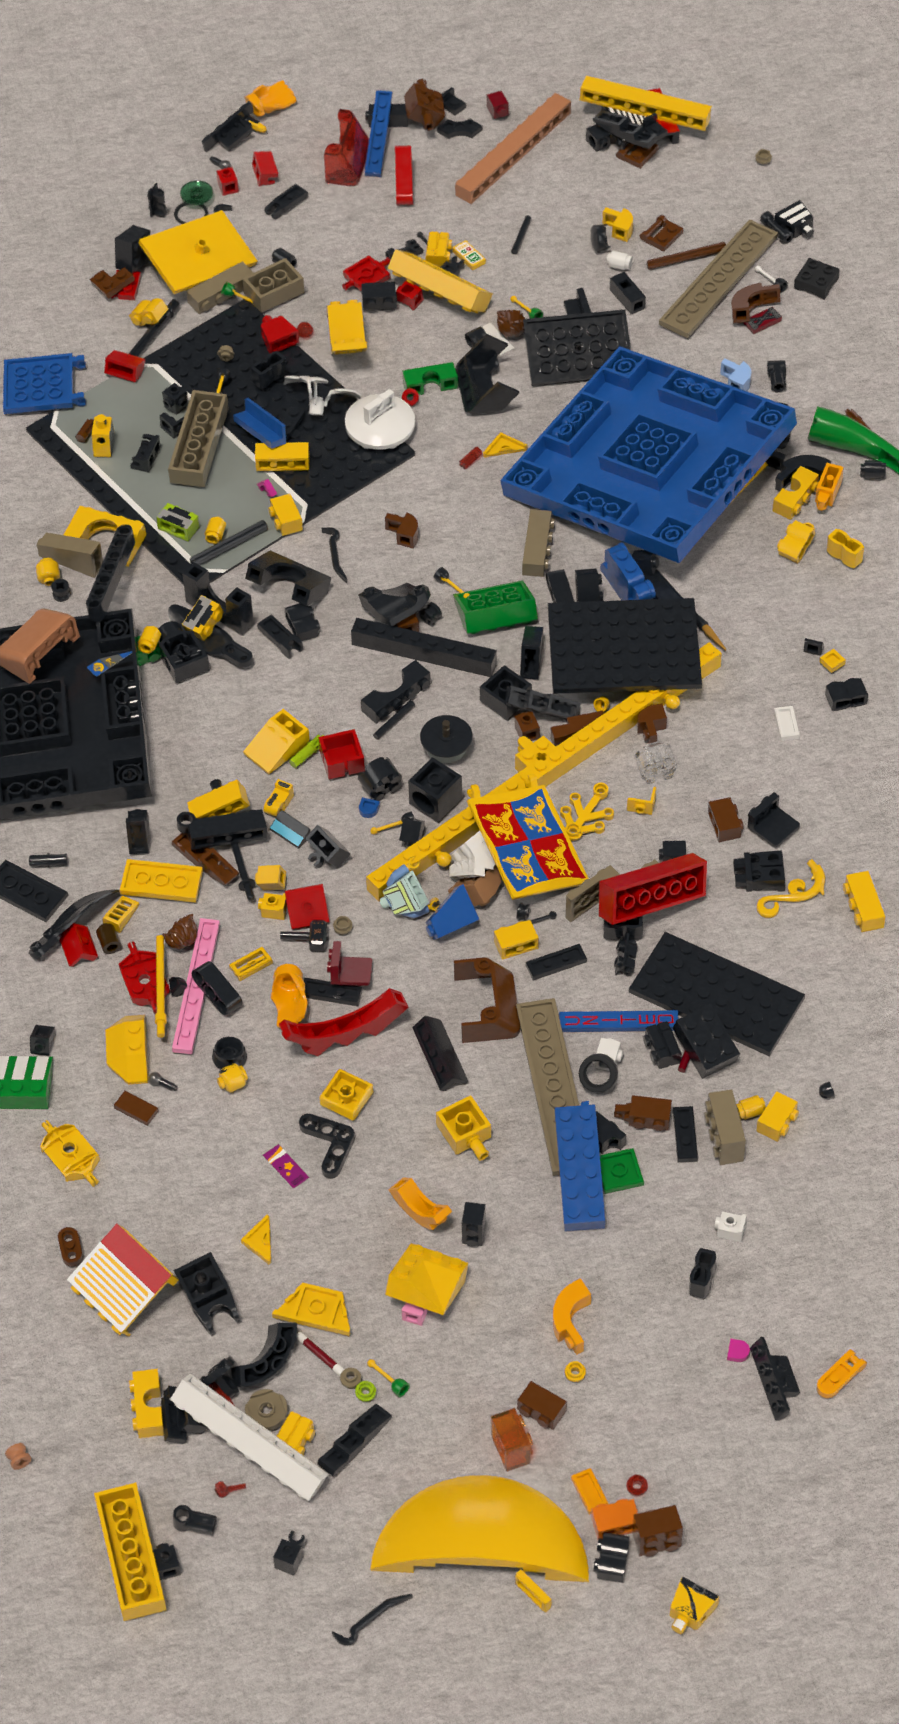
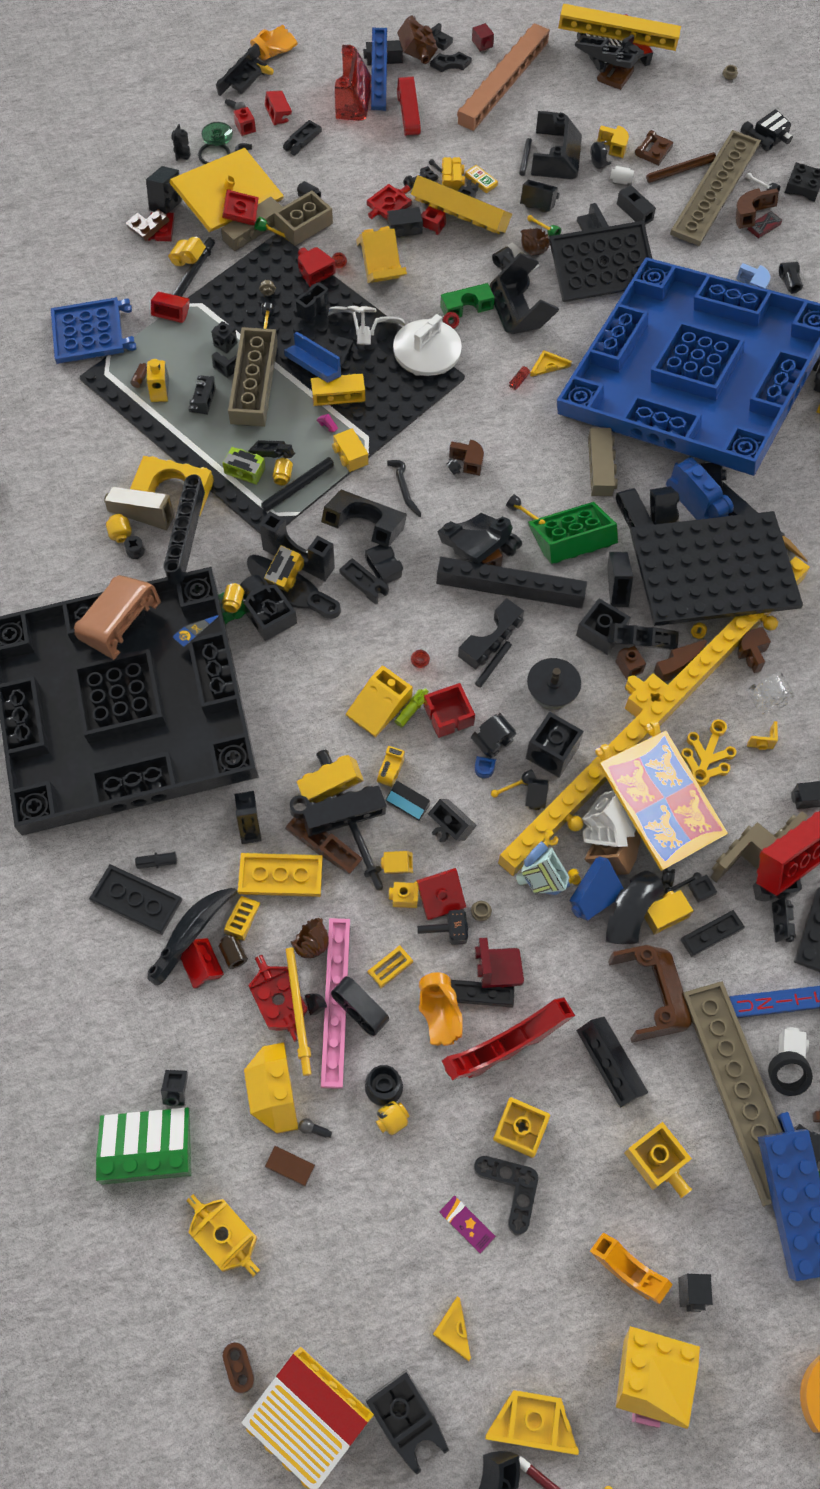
camera: 10 degrees left, 10 degrees up
(207, 508) = (272, 449): none -> black hinge
(208, 271) = (240, 207): none -> red tile
(323, 705) = (420, 654): none -> clear red plate
(387, 537) = (454, 466): none -> black plate
(480, 929) = (632, 906): none -> black brick
(525, 276) = (539, 195): none -> black brick
(554, 923) = (702, 888): none -> black plate
(557, 242) = (561, 161): none -> black windscreen
(597, 137) = (578, 62): black brick -> none

